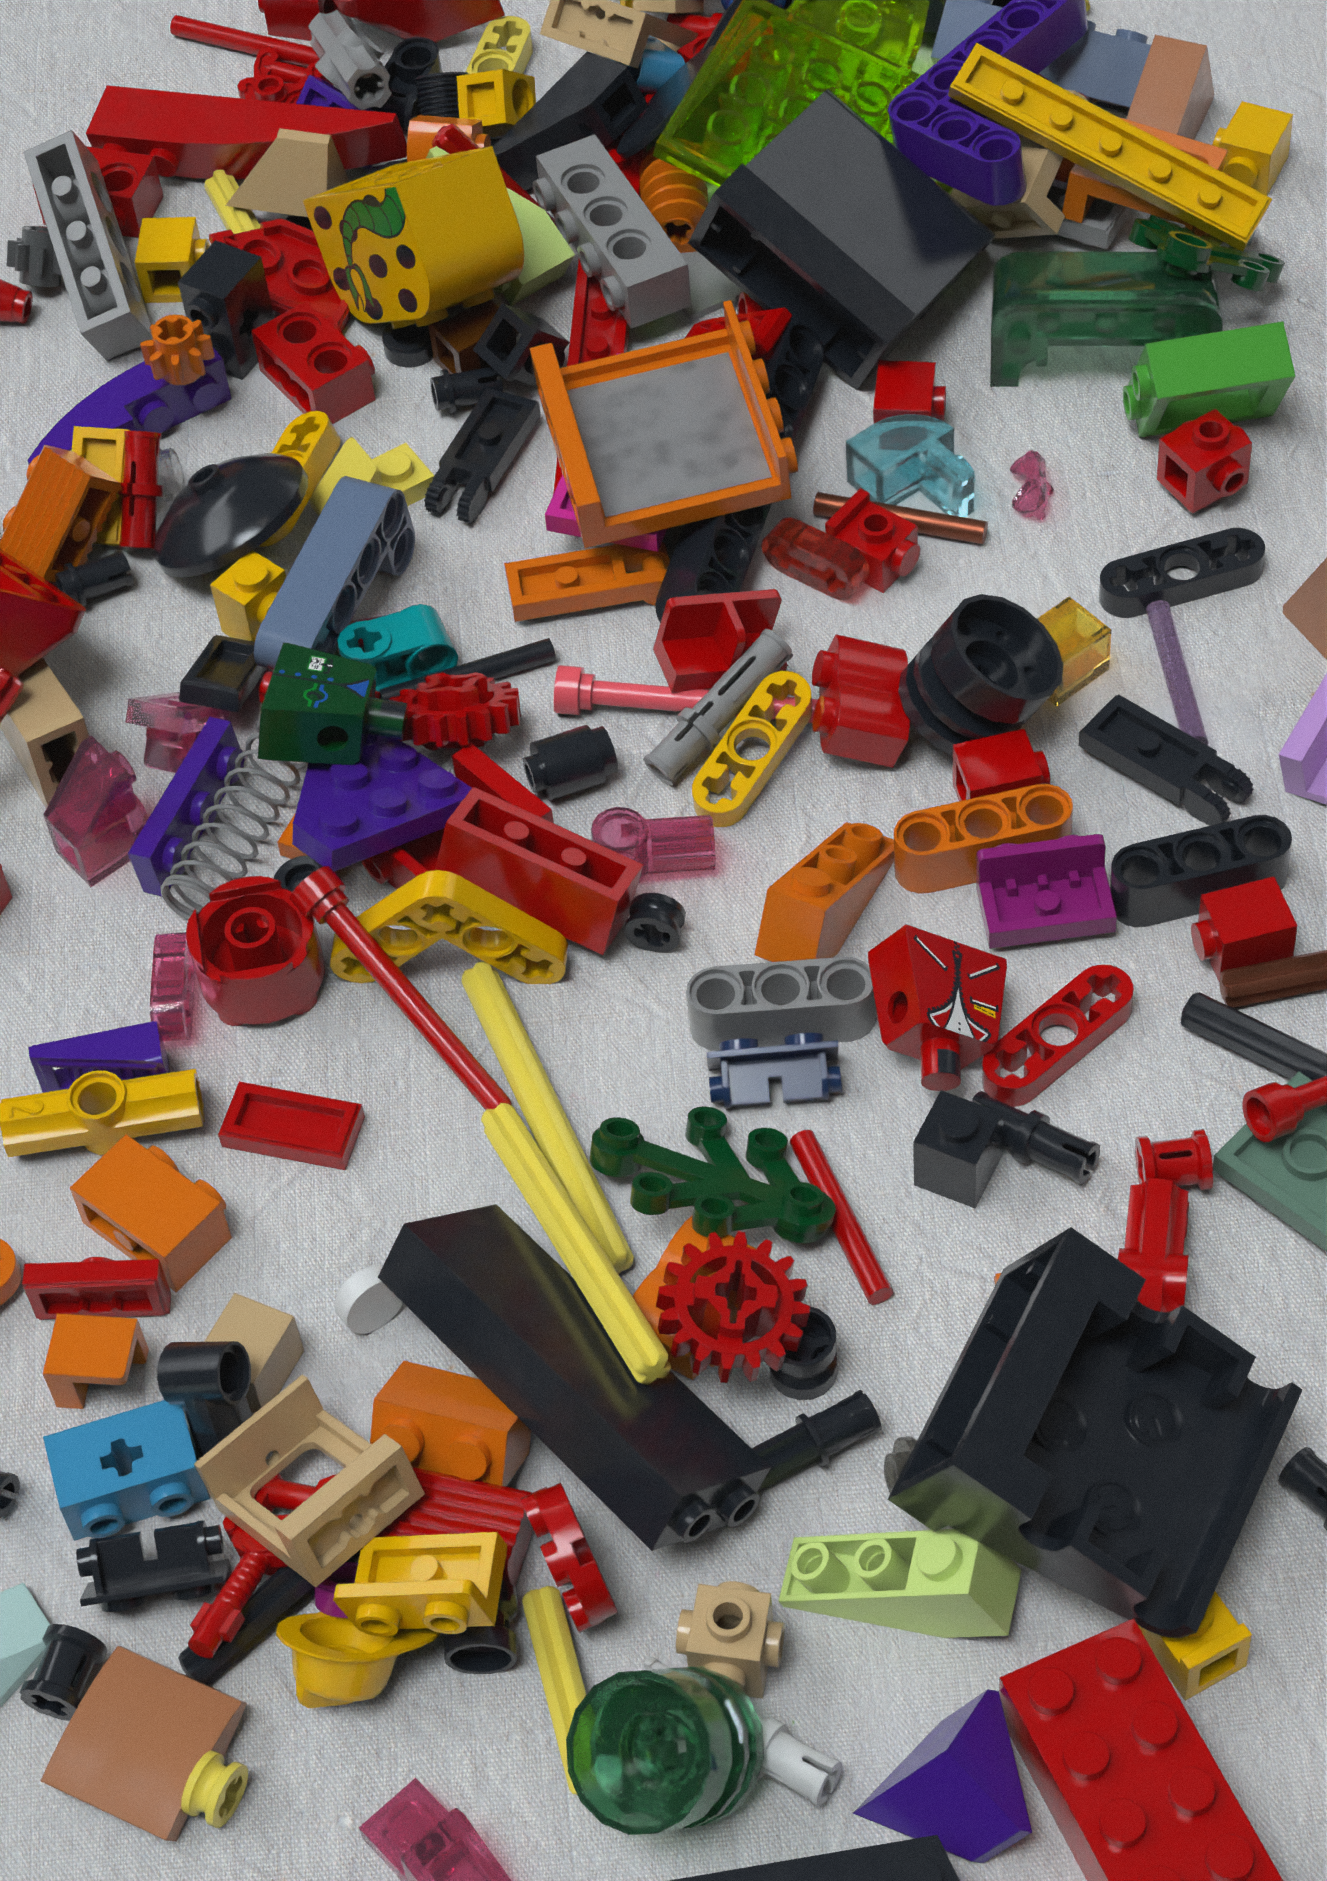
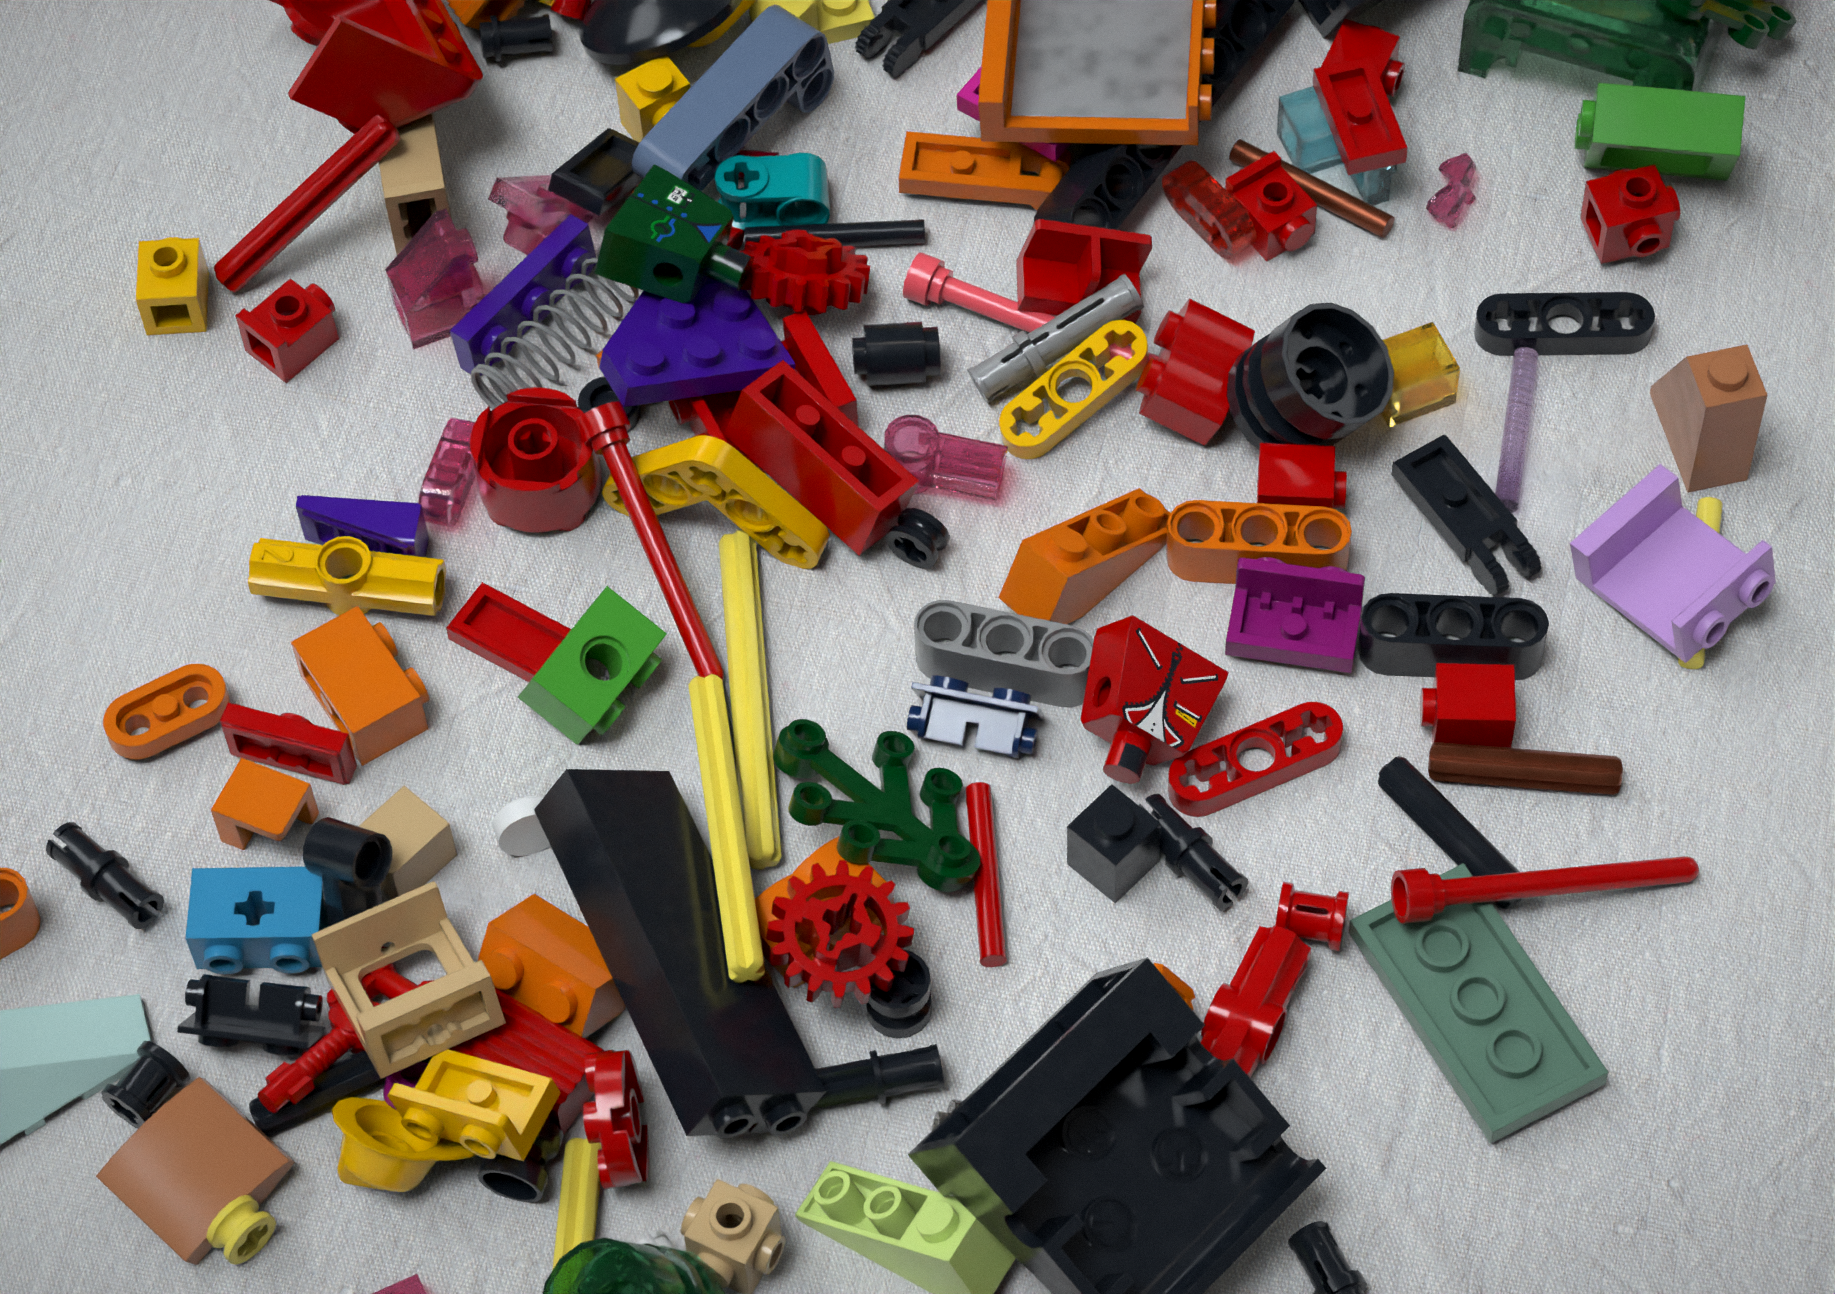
camera: 15 degrees right, 5 degrees up
(359, 1153) = (564, 688): none -> bright green brick
(931, 434) = (1359, 115): none -> red plate

